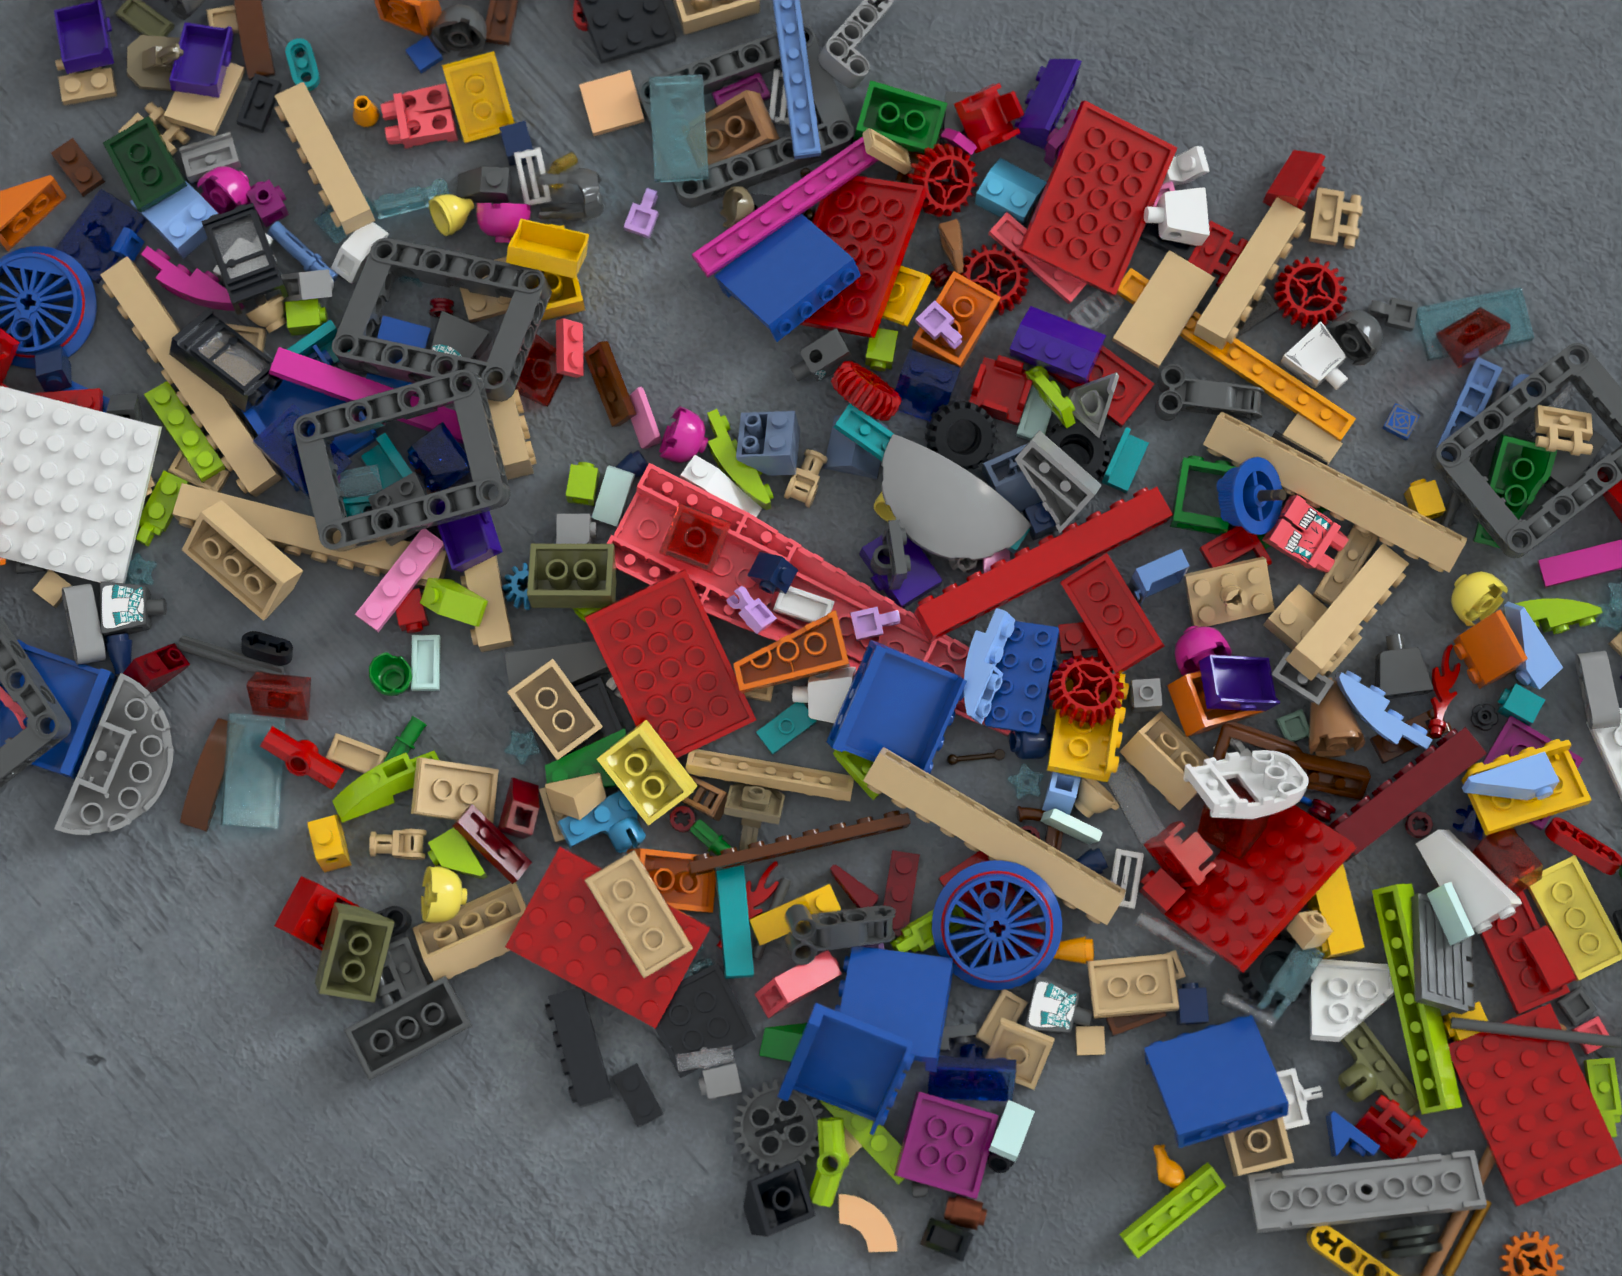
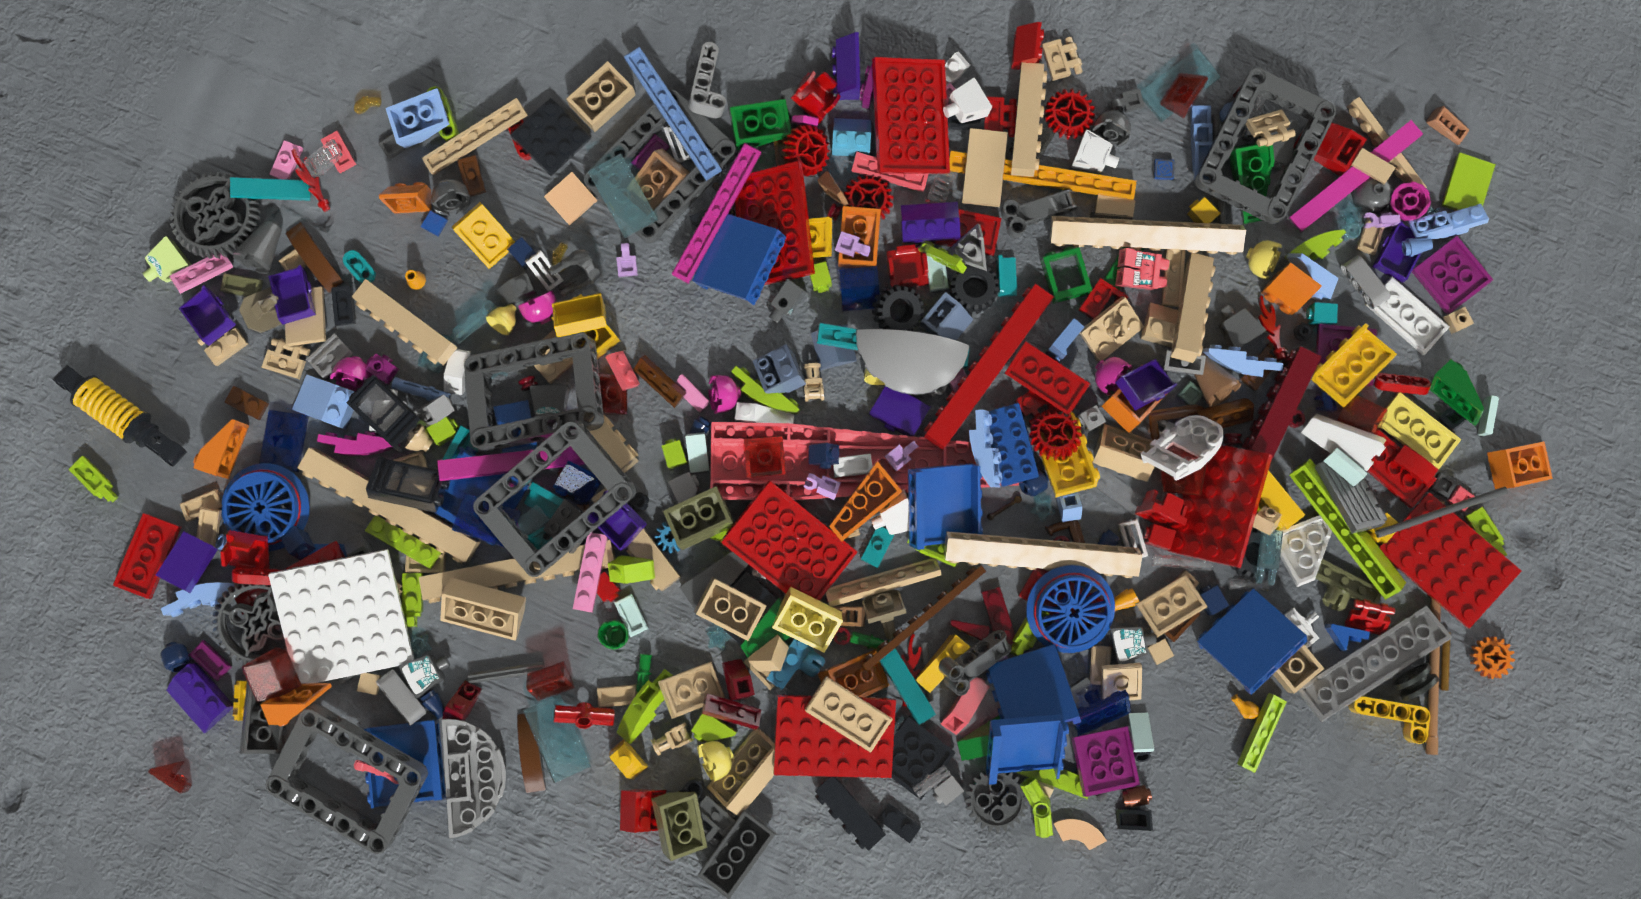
camera: 25 degrees left, 5 degrees up
(128, 244) = (305, 438): blue tile -> none
(145, 164) = (289, 381): dark green plate -> none
(267, 648) = (526, 655): black beam -> none
(422, 117) = (453, 264): coral hips -> none
(503, 518) = (634, 502): none -> black plate
(736, 205) = (683, 228): dark tan hair -> none
(777, 1200) = (1020, 848): black slope -> none
(866, 391) = (825, 309): red gear -> none
(886, 151) = (762, 148): tan tile -> none
(893, 540) = (891, 400): dark grey plate -> none
(1040, 520) = (973, 337): dark blue brick -> none
(1057, 479) = (974, 309): light grey wedge -> none
(1071, 826) = (1083, 524): light aqua tile -> none
(1094, 798) = (1091, 499): tan piece -> none
(1251, 496) = (1098, 262): blue piece -> none
(1517, 780) = (1348, 364): light blue slope -> none

